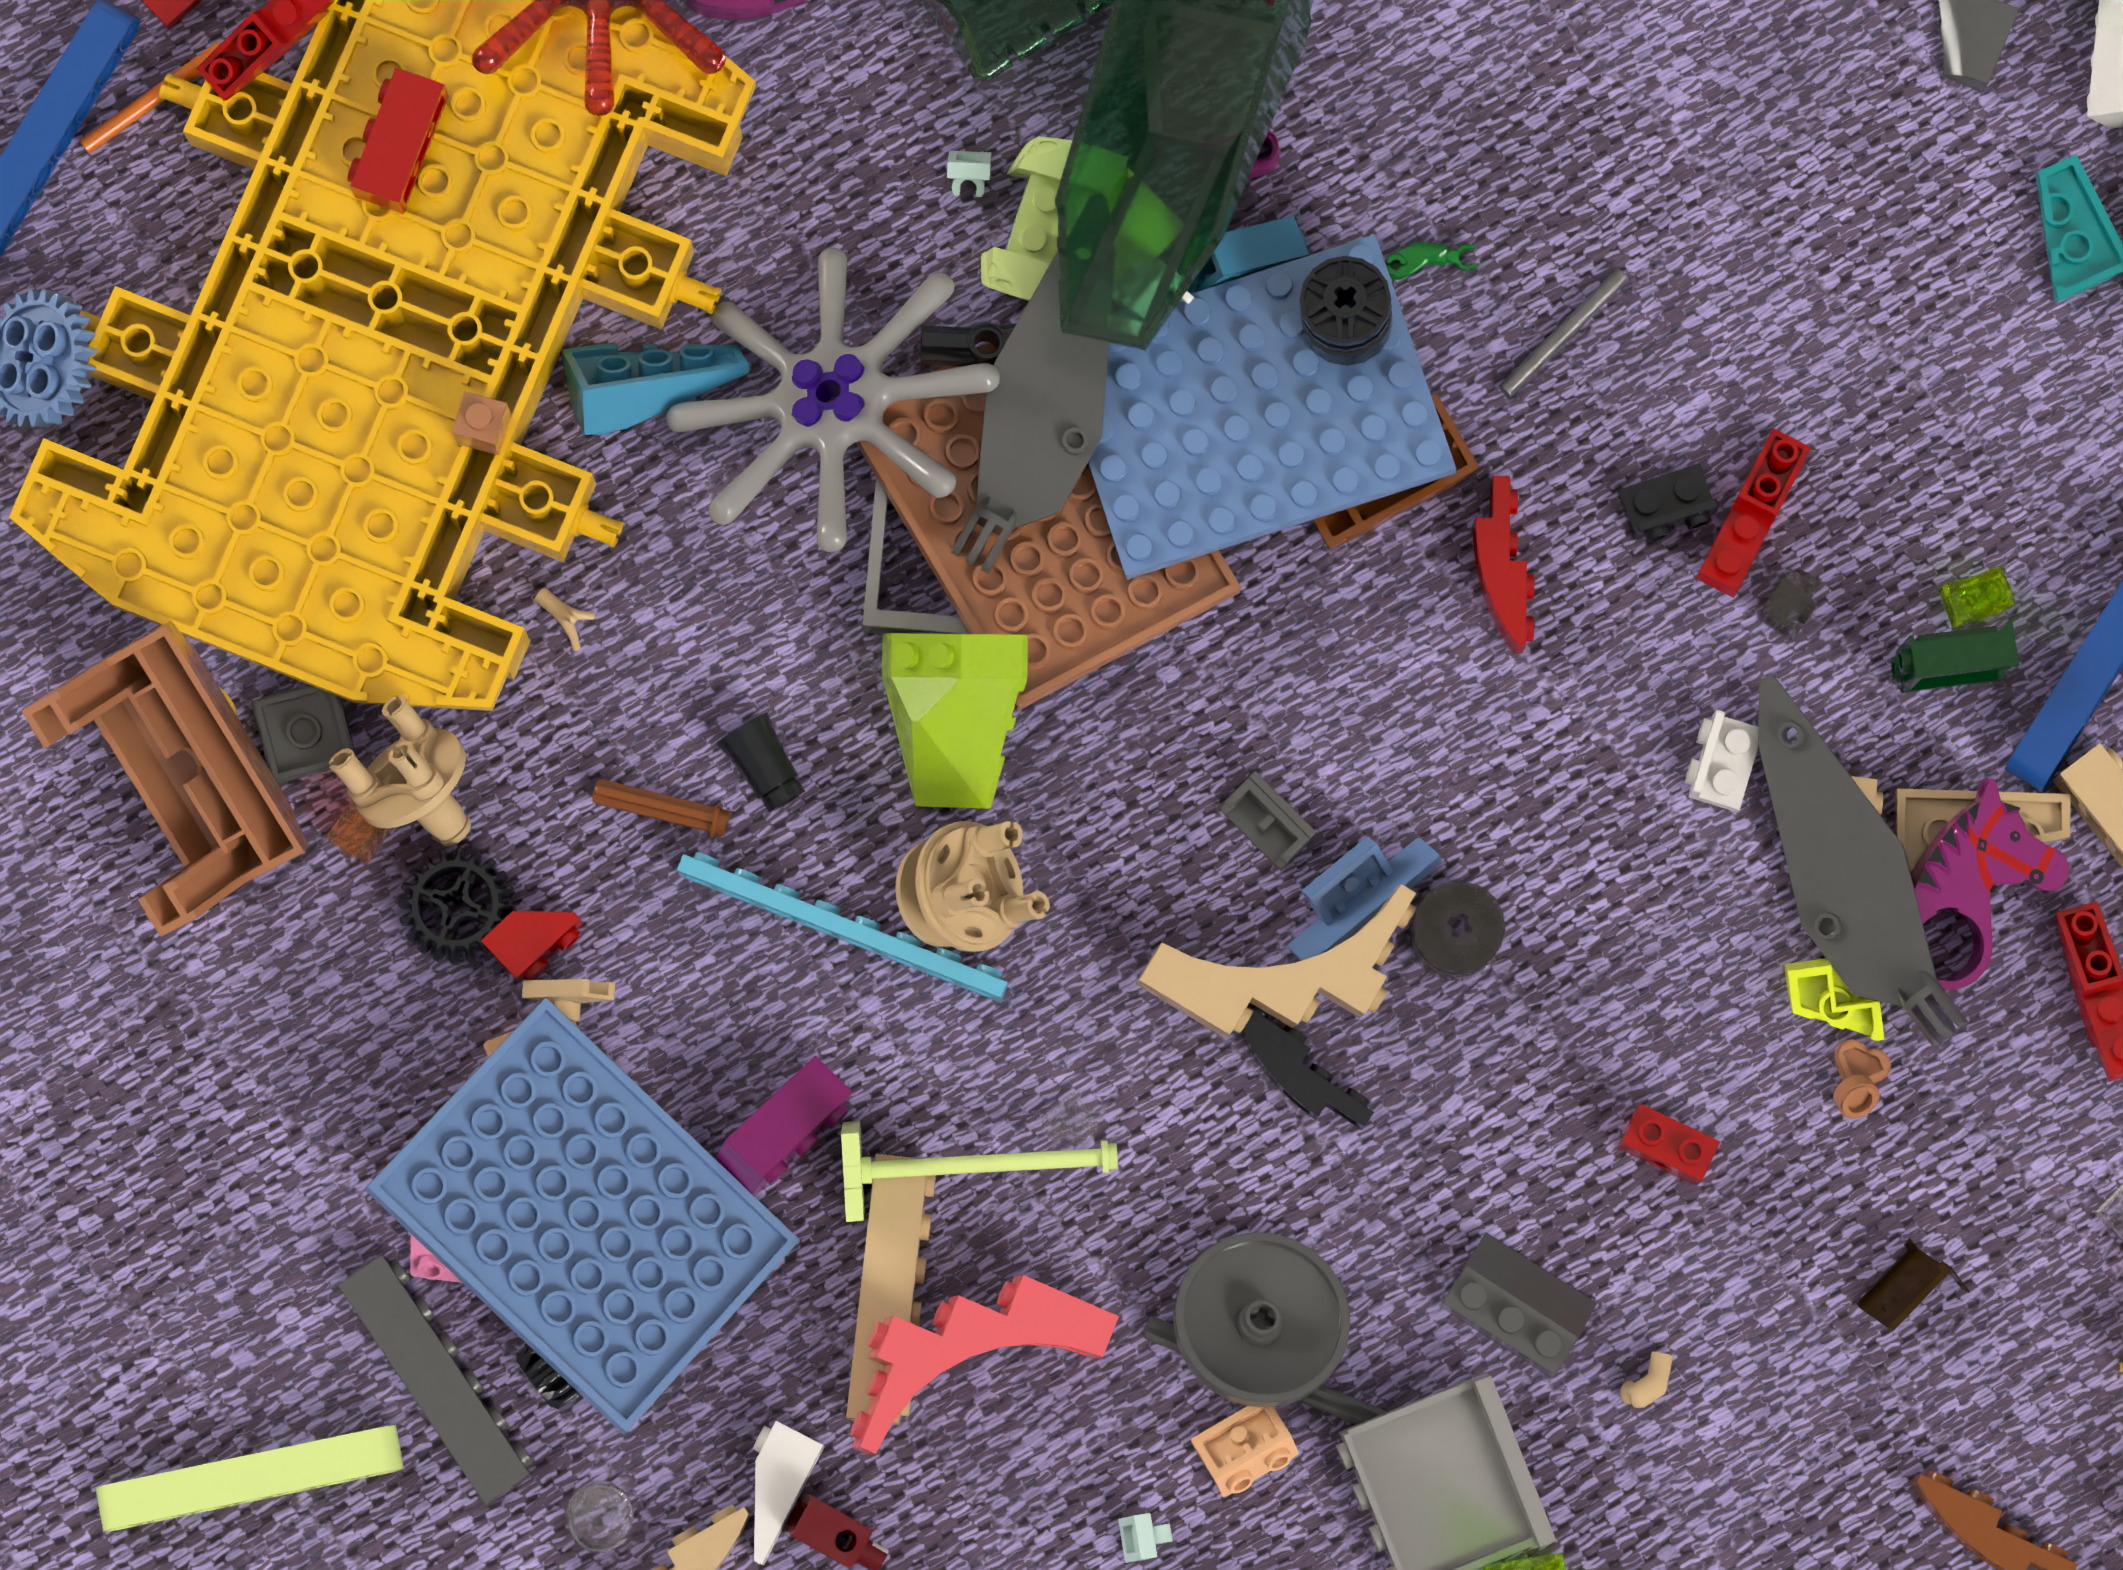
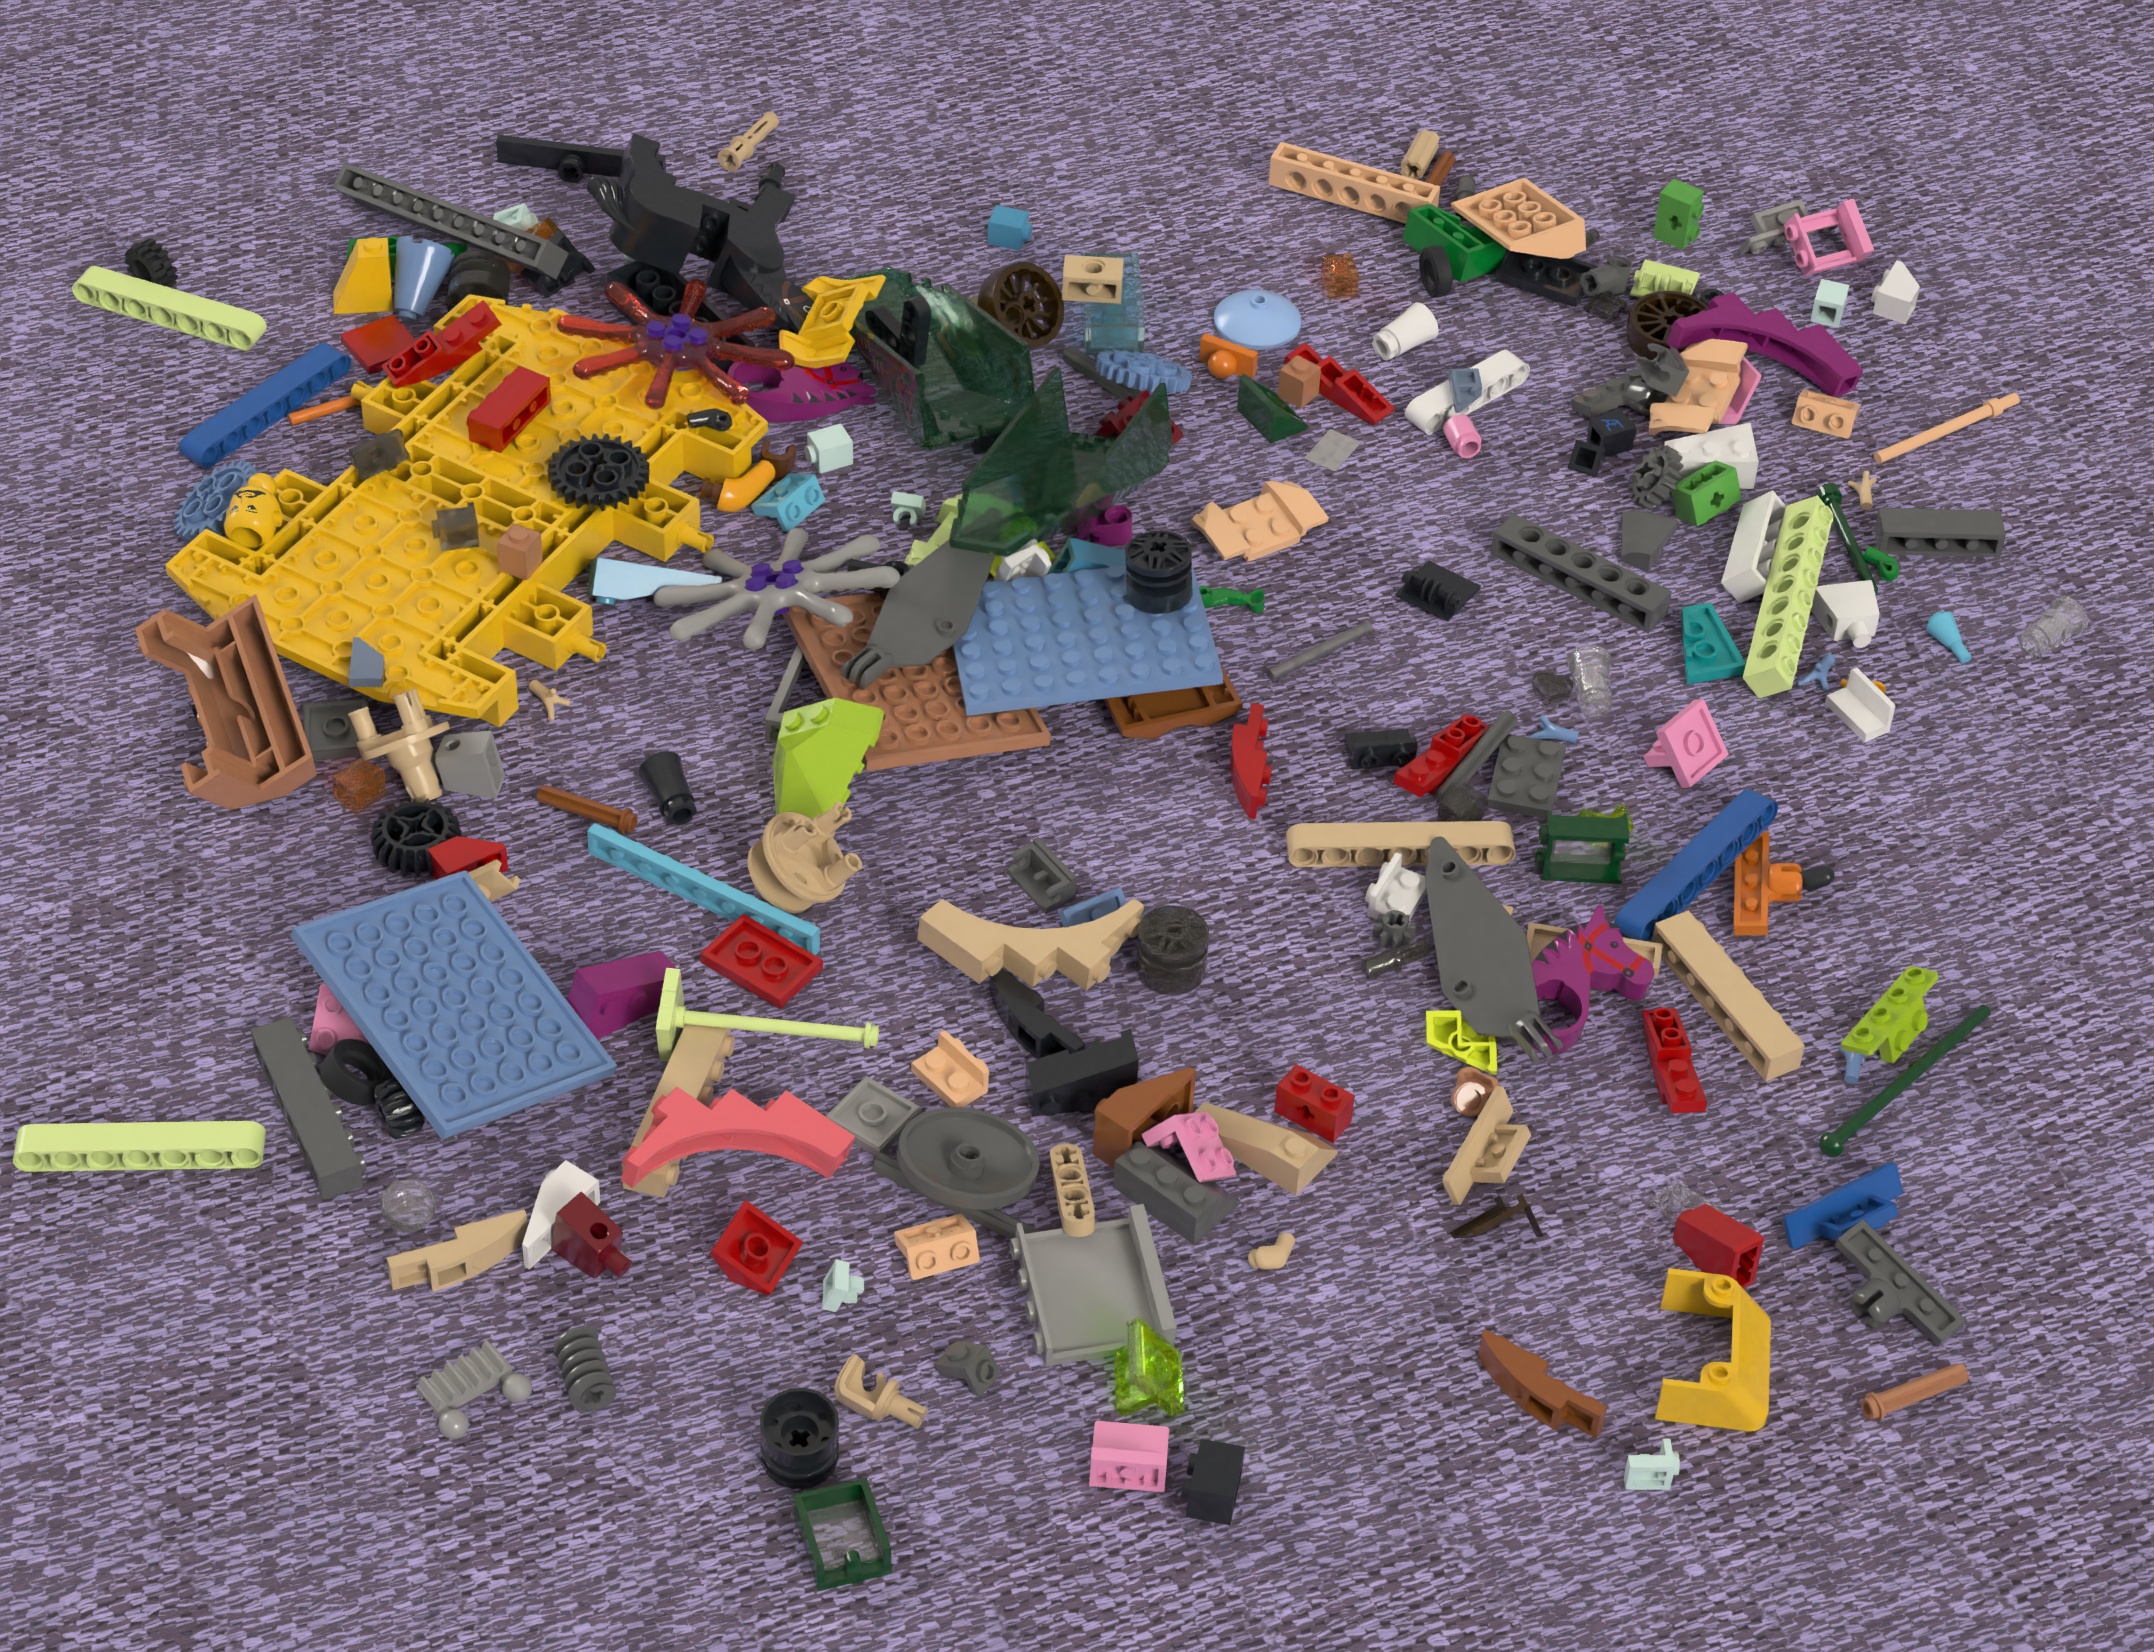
camera: 10 degrees right, 35 degrees down
(102, 410) = (253, 512): none -> yellow piece
(245, 267) = (379, 454): none -> clear smoke hips
(327, 663) = (365, 665): none -> sand blue tile
(383, 389) = (456, 528): none -> clear smoke brick
(466, 1346) = (346, 1084): none -> black tyre
(500, 775) = (469, 764): none -> light grey torso
(588, 249) = (598, 472): none -> black gear
(678, 98) = (711, 418): none -> black arm
(736, 187) = (741, 492): none -> piece
(804, 183) = (790, 500): none -> medium azure bracket
(839, 74) = (829, 448): none -> light aqua brick
(941, 1031) = (761, 961): none -> red plate
(1031, 1497) = (755, 1249): none -> red slope
(1127, 1253) = (873, 1115): none -> light grey tile
(1212, 1170) = (952, 1072): none -> light nougat bracket
(1379, 1165) = (1081, 1079): none -> black wedge
(1393, 1344) = (1072, 1189): none -> tan beam
(1450, 109) = (1262, 523): none -> light nougat piece
(1454, 1233) = (1139, 1108): none -> dark orange slope
(1538, 1246) = (1200, 1141): none -> bright pink bracket
(1622, 1210) = (1271, 1149): none -> tan wedge
(1706, 189) = (1437, 590): none -> black hinge
(1716, 677) = (1378, 842): none -> tan beam
(1735, 876) = (1393, 959): none -> clear smoke axle
(1740, 832) = (1394, 929): none -> dark grey gear
(1796, 504) = (1478, 754): none -> dark grey axle
(1863, 515) = (1526, 776): none -> dark grey plate
(1877, 344) = (1551, 687): none -> clear smoke tile
(1890, 429) = (1553, 731): none -> medium blue bar
(1893, 1175) = (1488, 1149): none -> tan bracket
(1905, 147) = (1581, 573): none -> dark grey brick
(1932, 337) = (1591, 679): none -> clear plant
(2069, 435) = (1688, 744): none -> bright pink bracket

